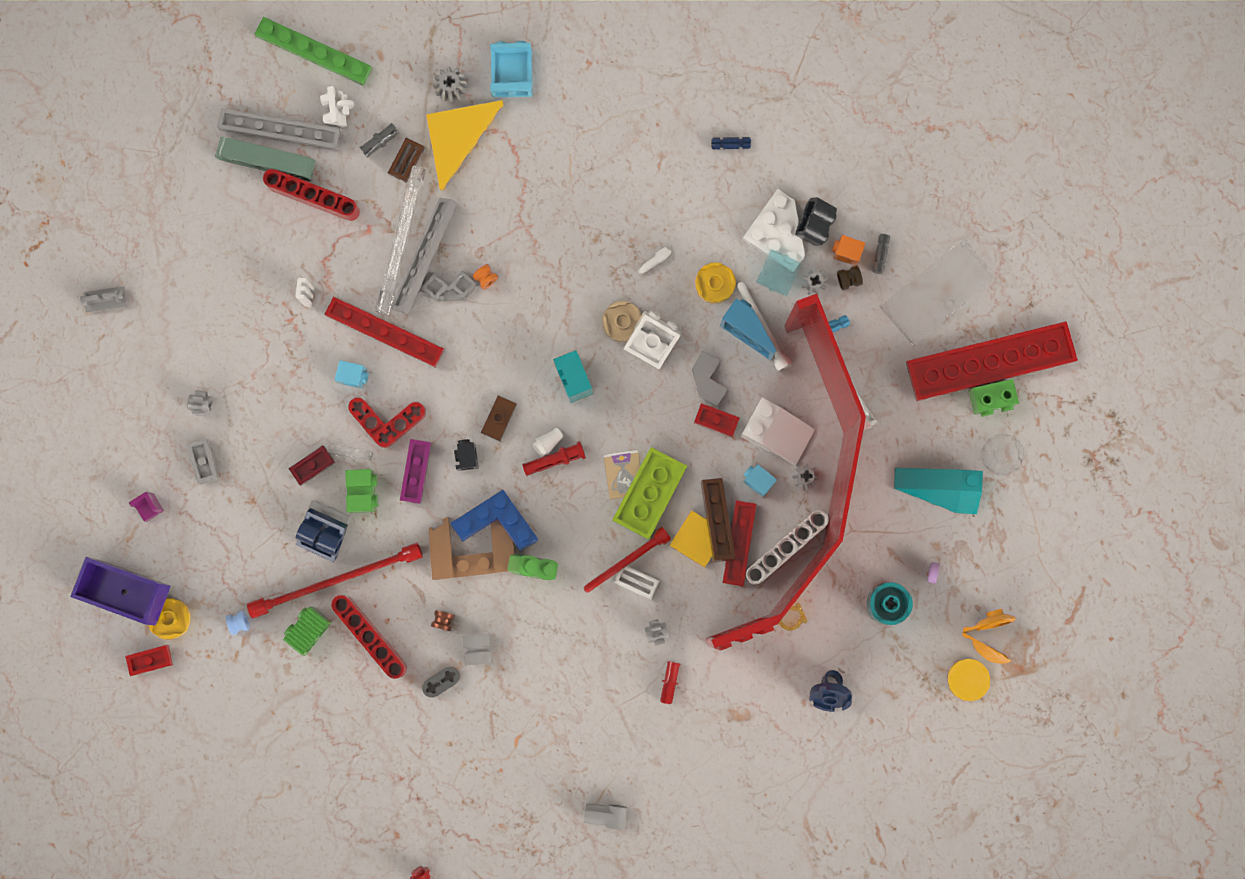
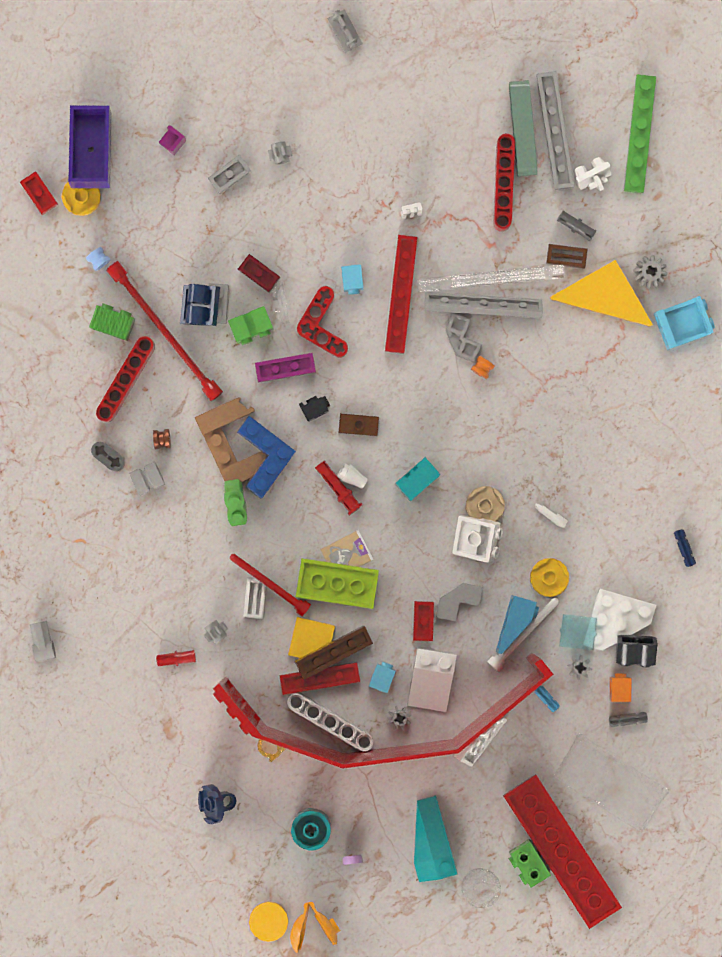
camera: 65 degrees right, 5 degrees up
(849, 277) = (595, 698): dark brown wheel -> none

